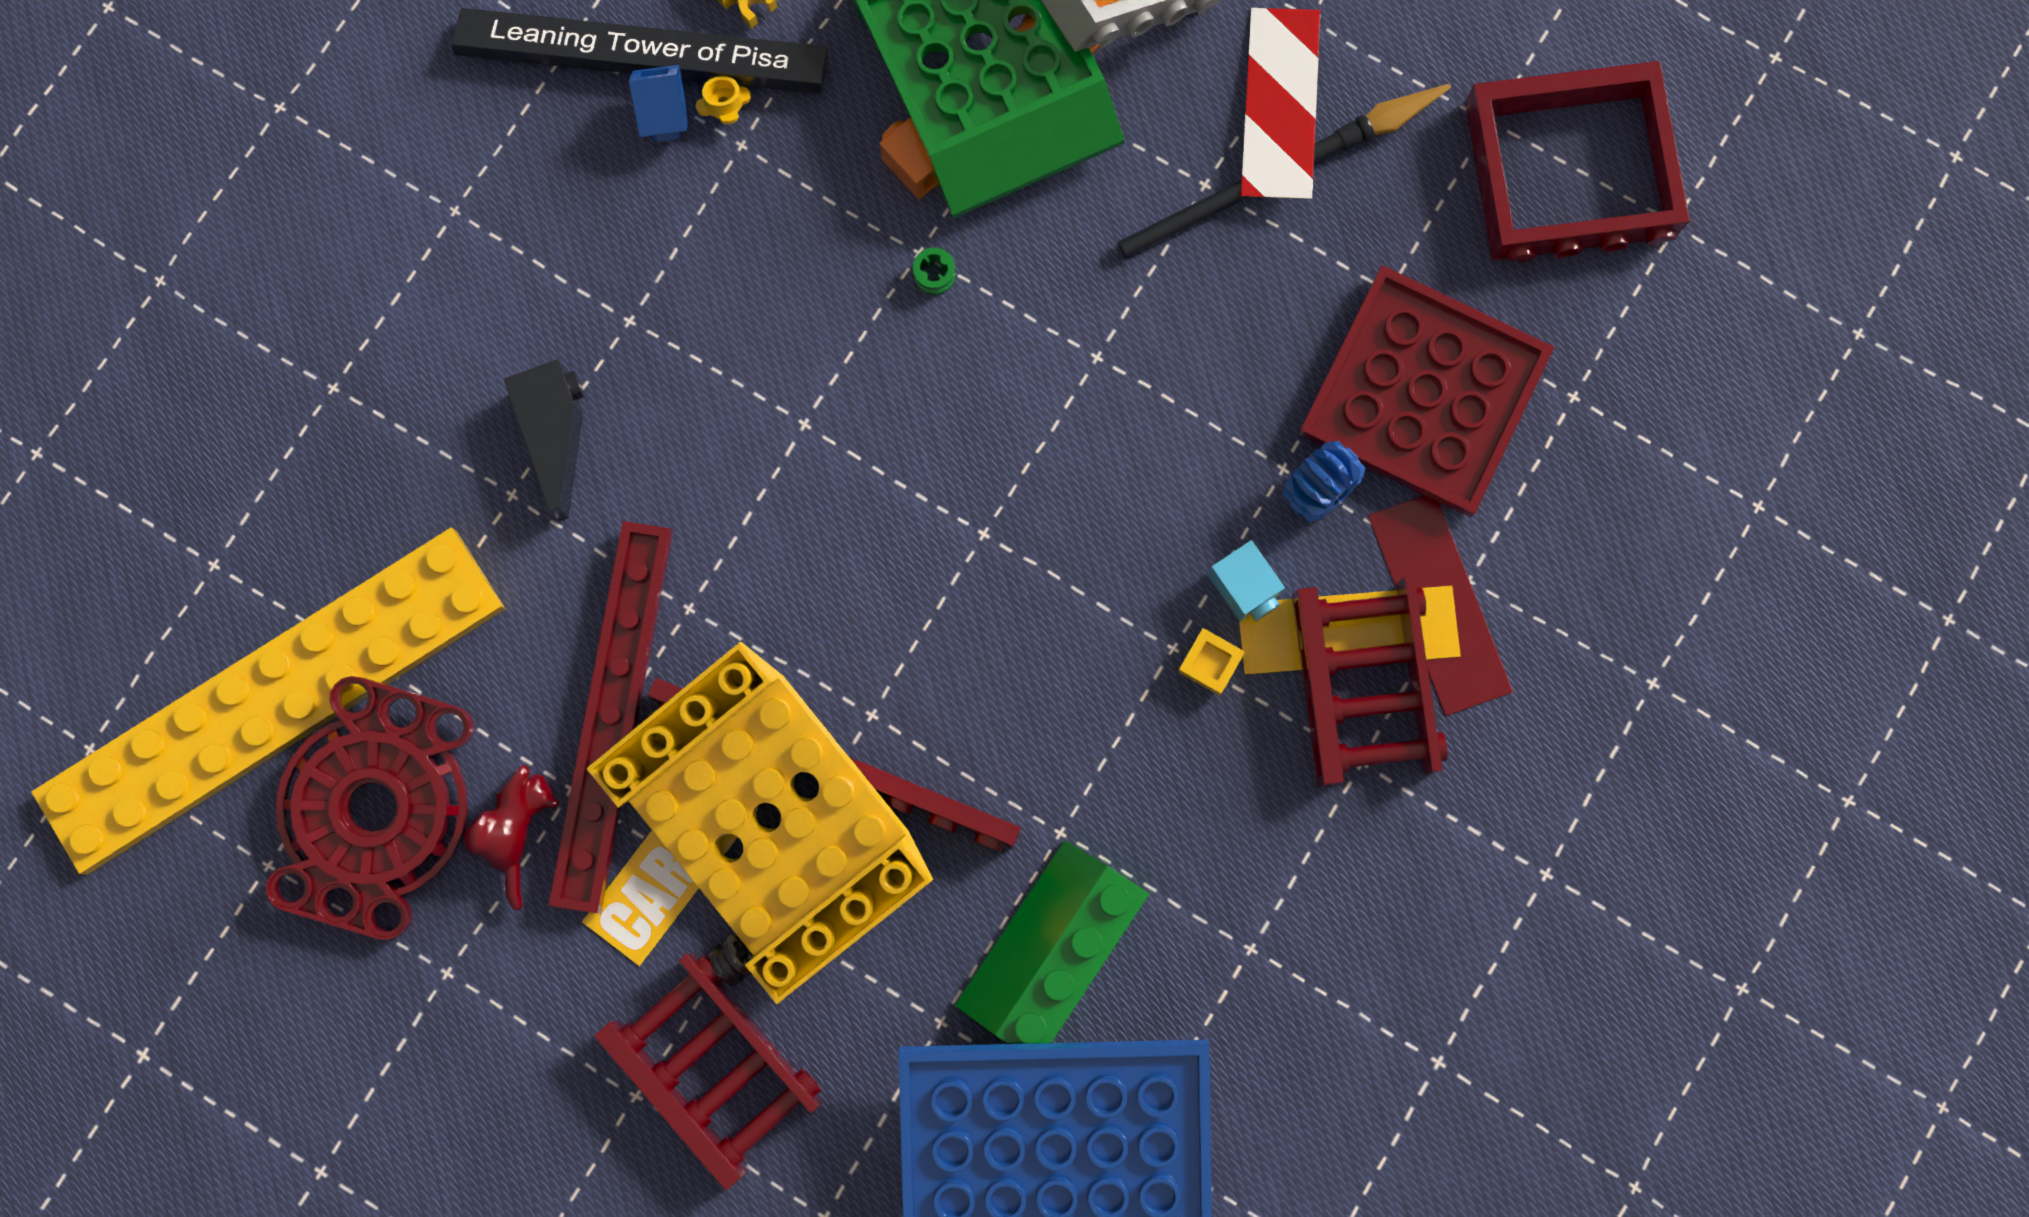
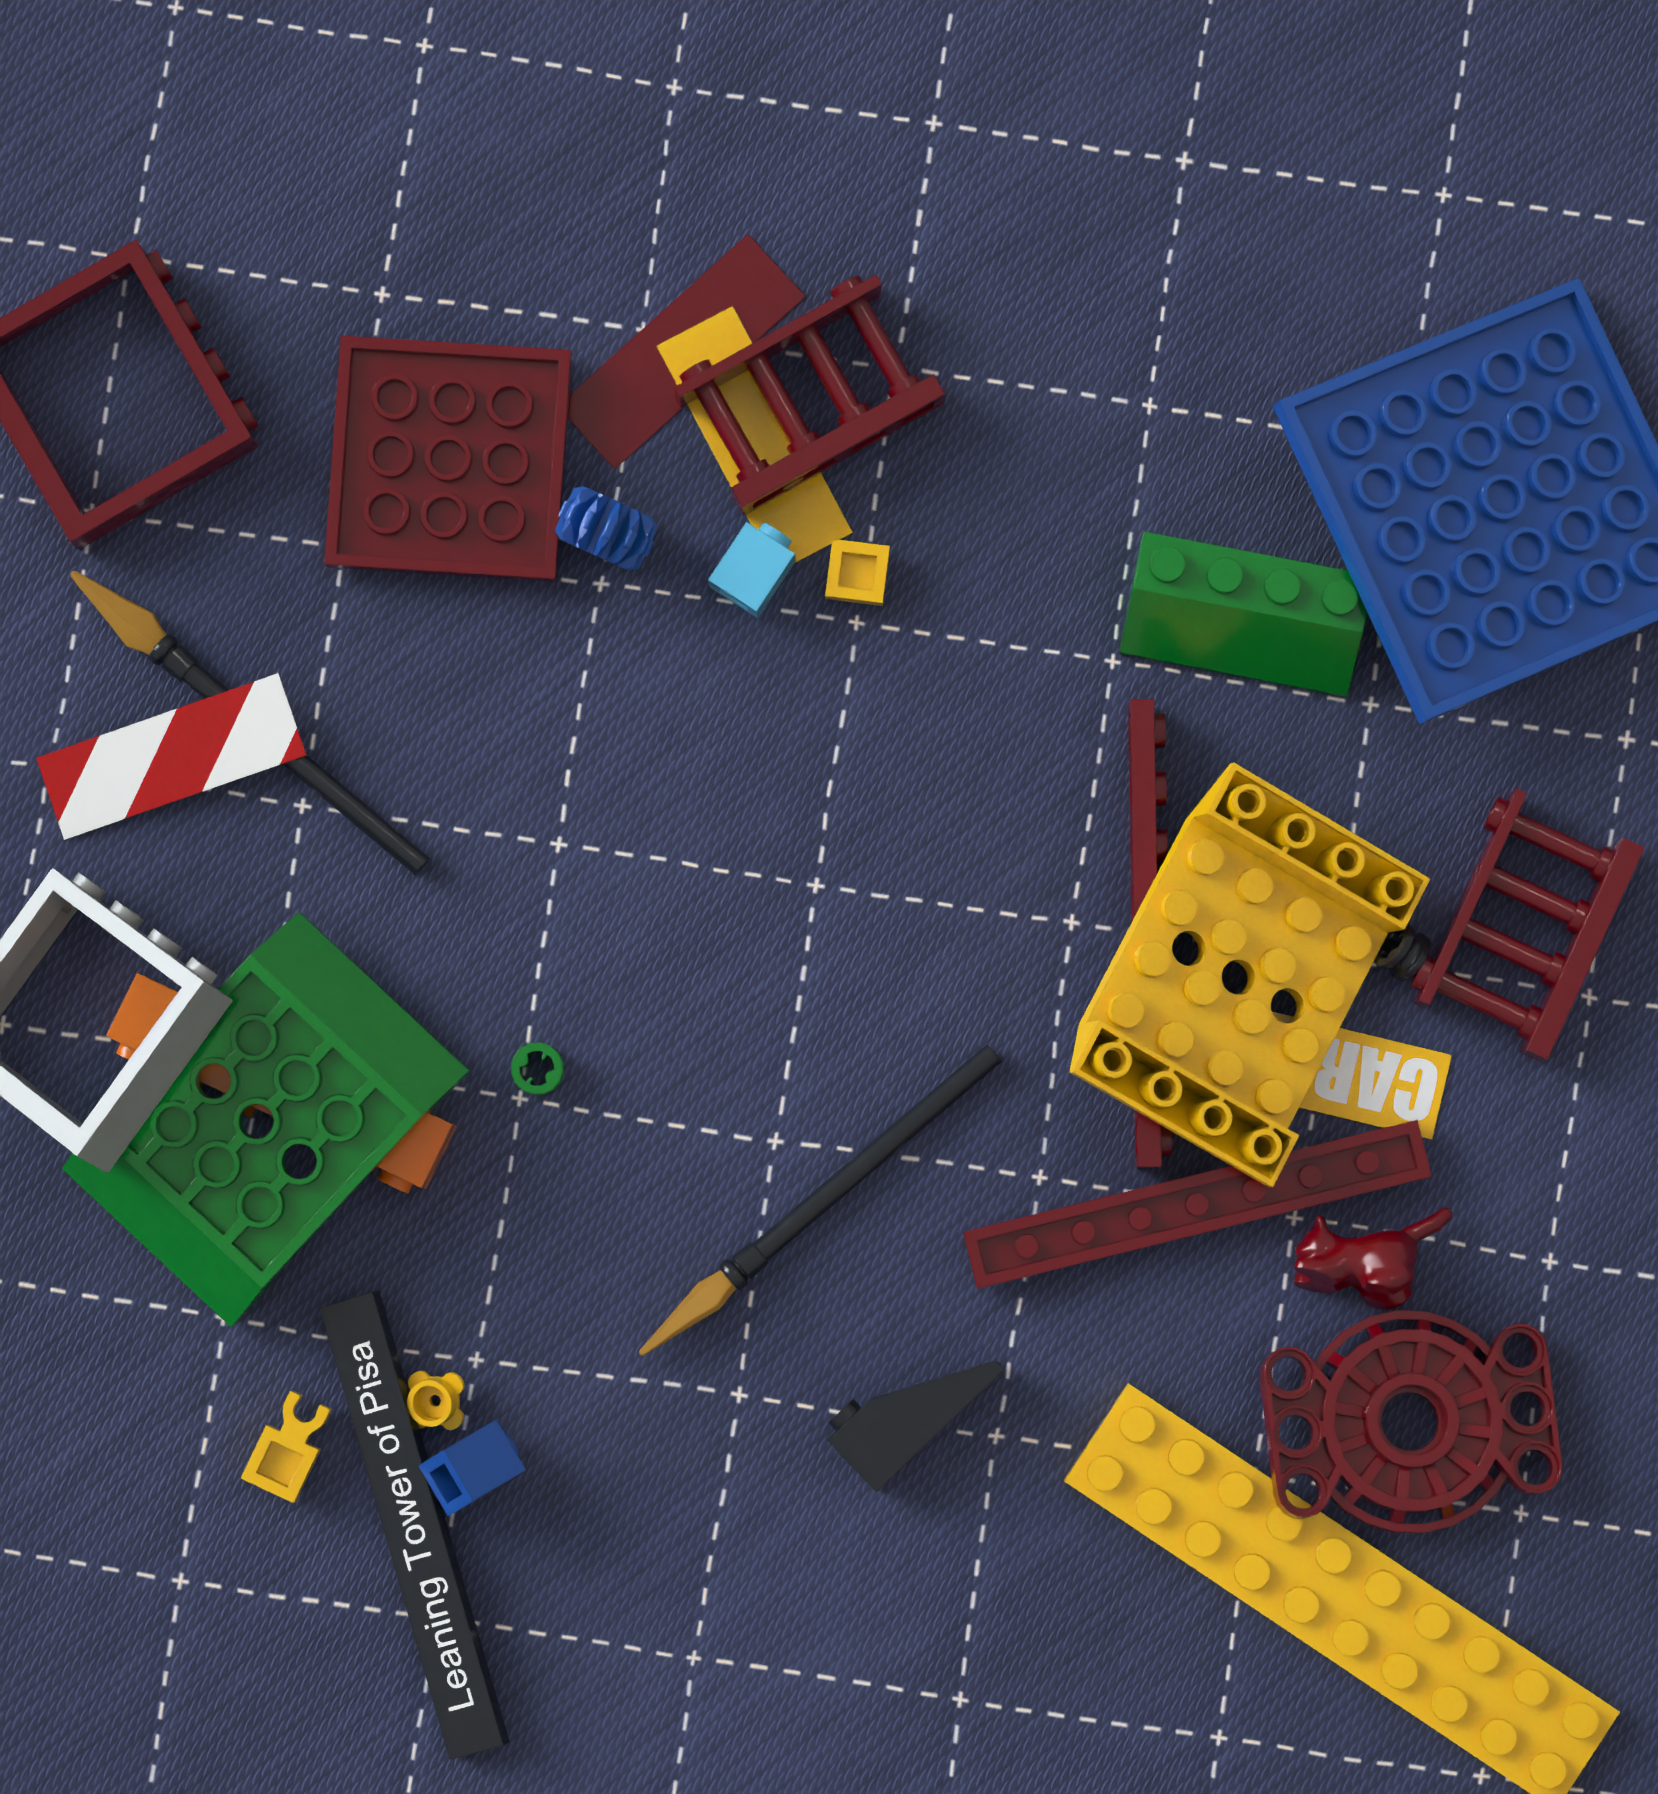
camera: 105 degrees left, 5 degrees up
(717, 350) = (714, 1290): none -> black piece

